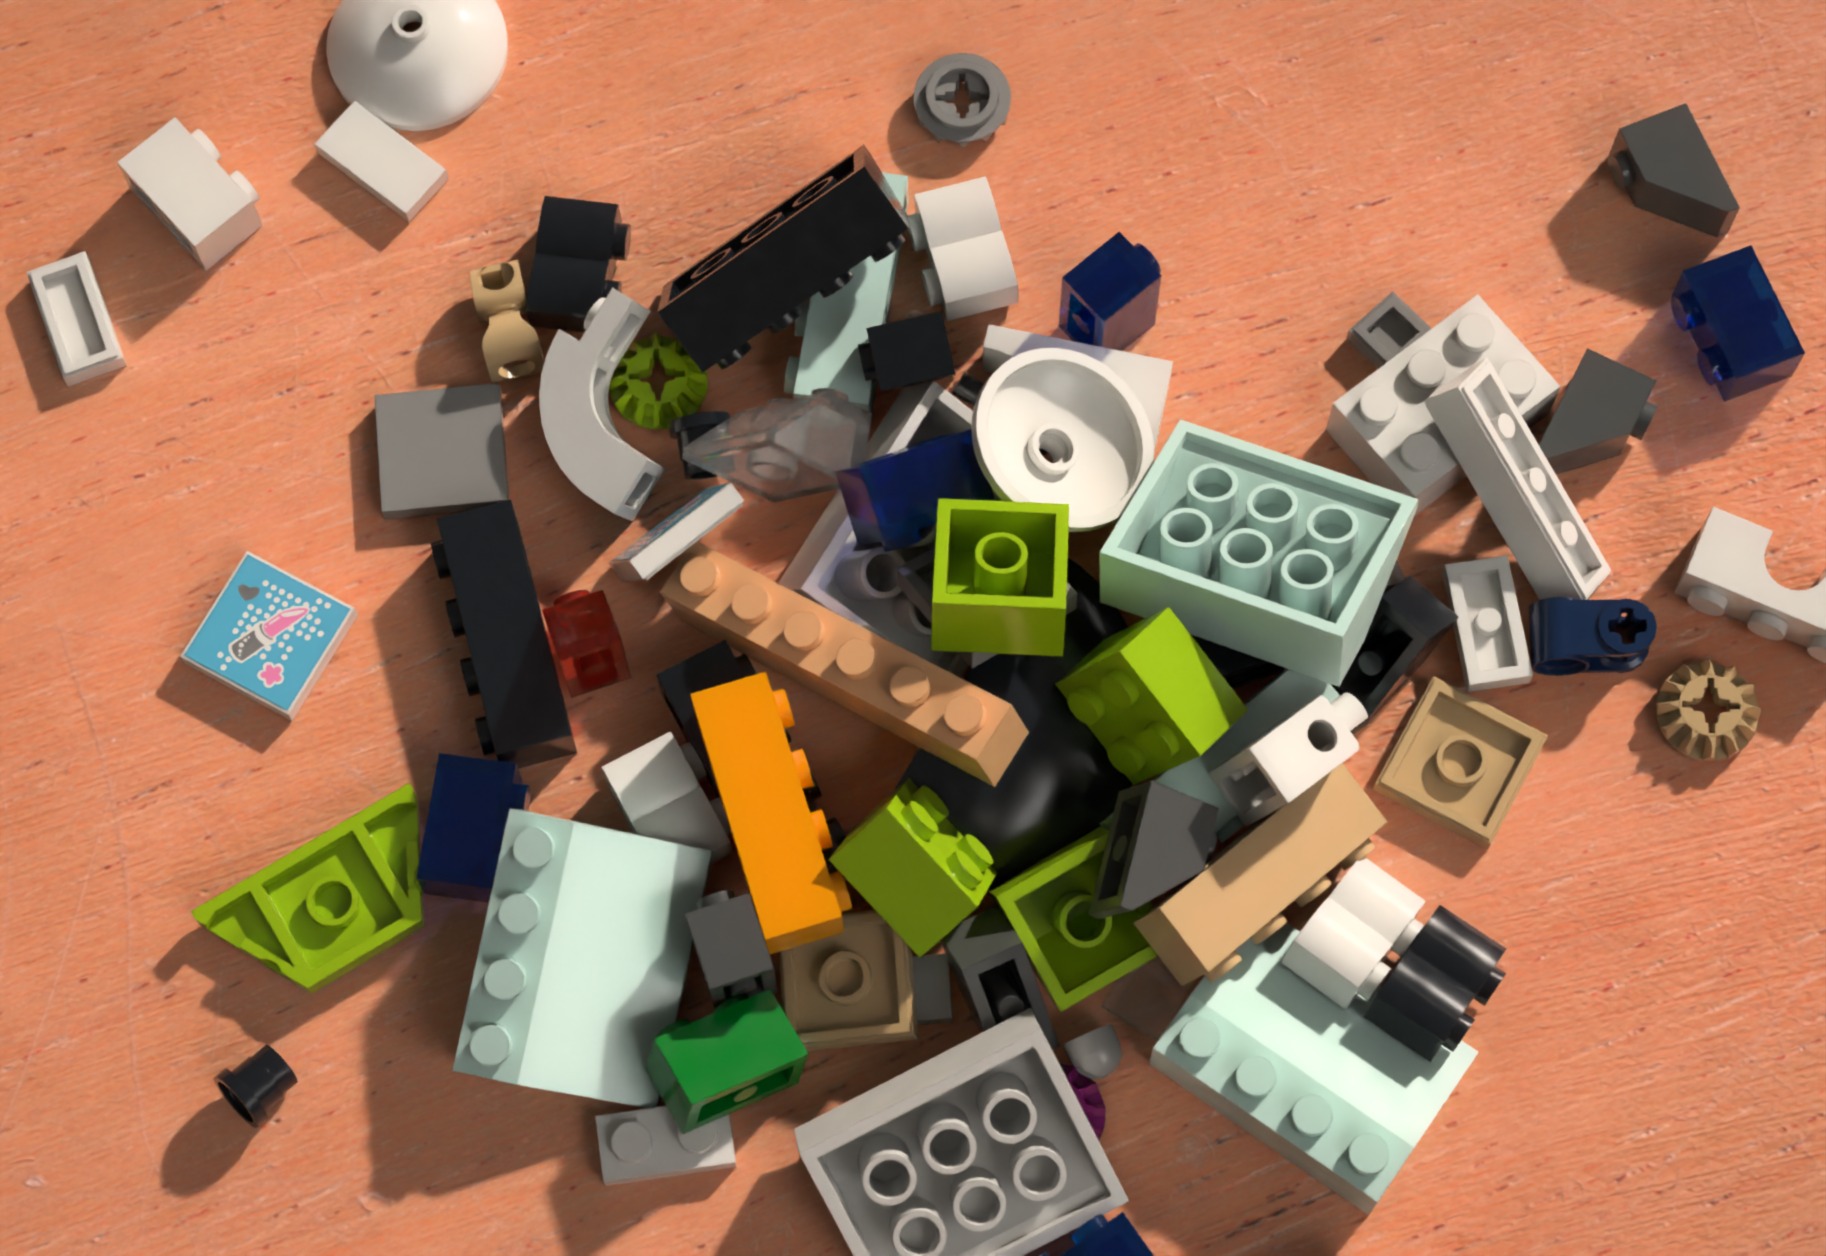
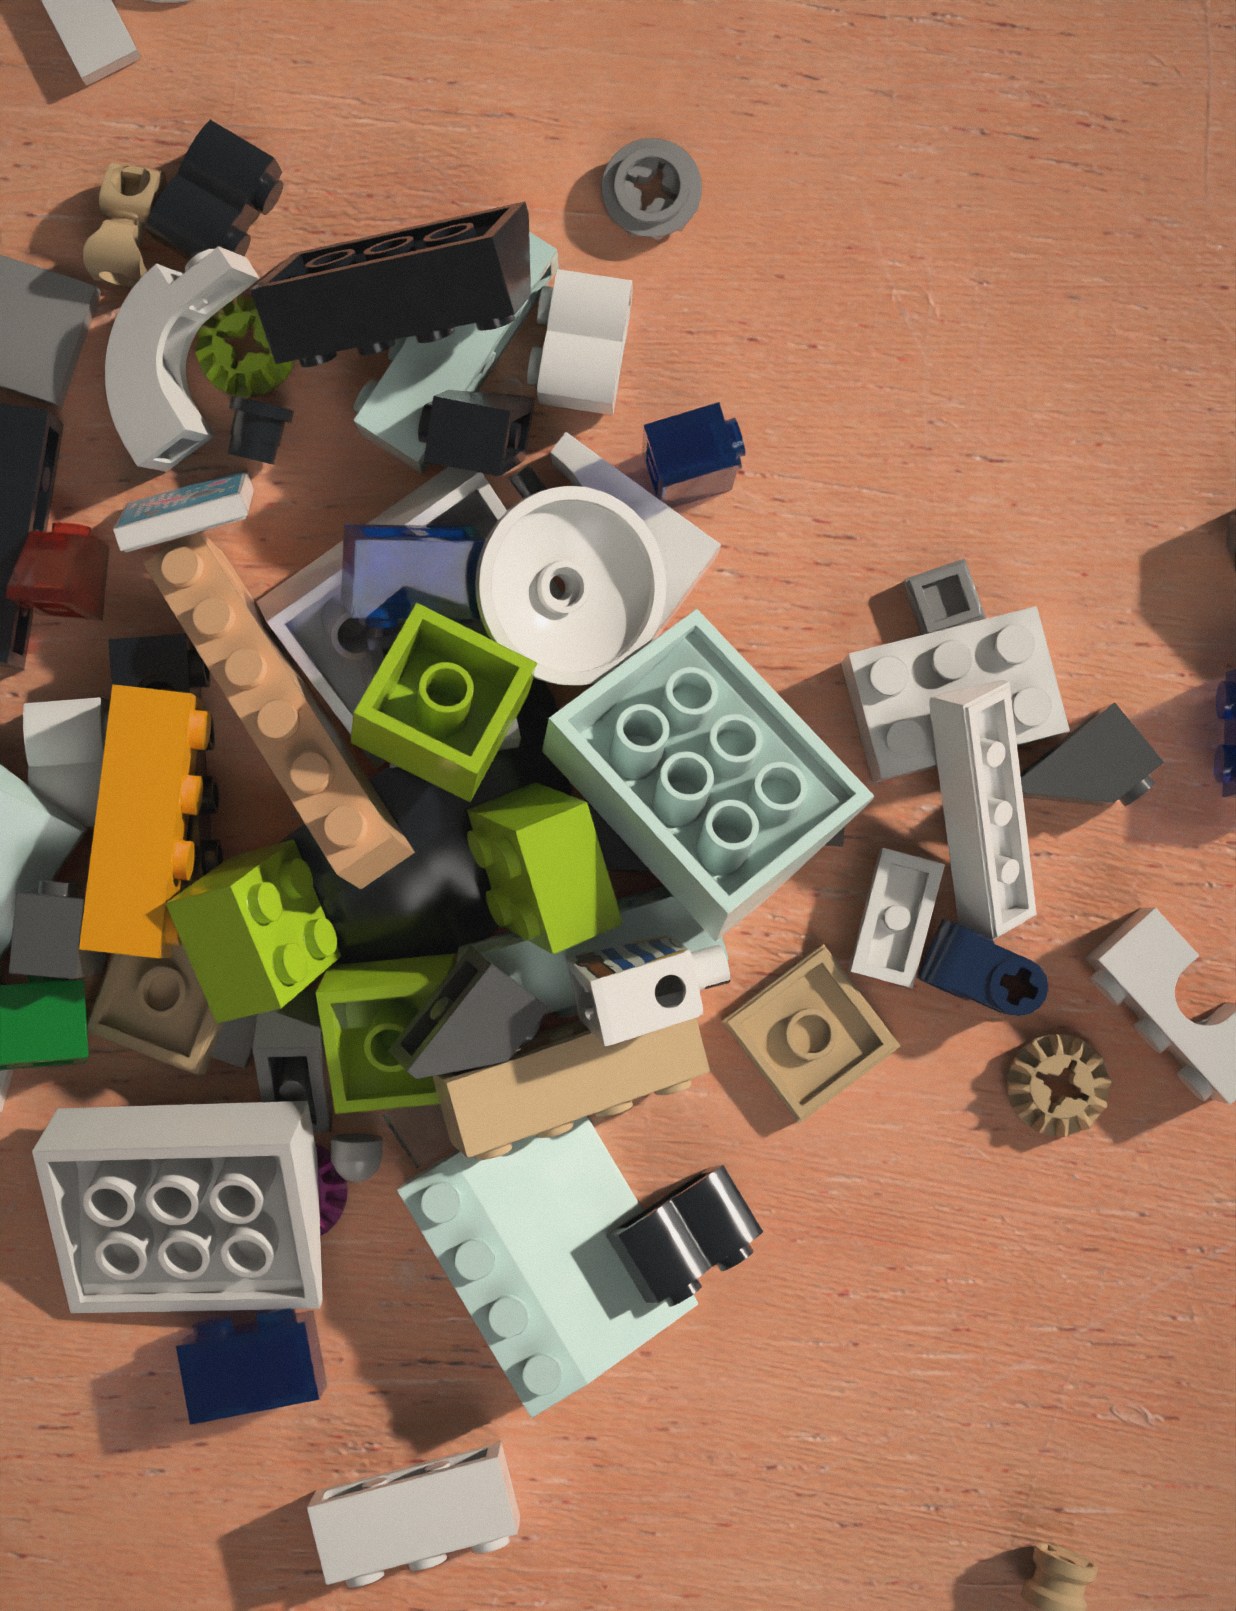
camera: 20 degrees right, 15 degrees up
(786, 445) = (322, 467): clear slope -> none
(1354, 933) = (635, 1157): white brick -> none
(1397, 643) = (809, 900): black slope -> none

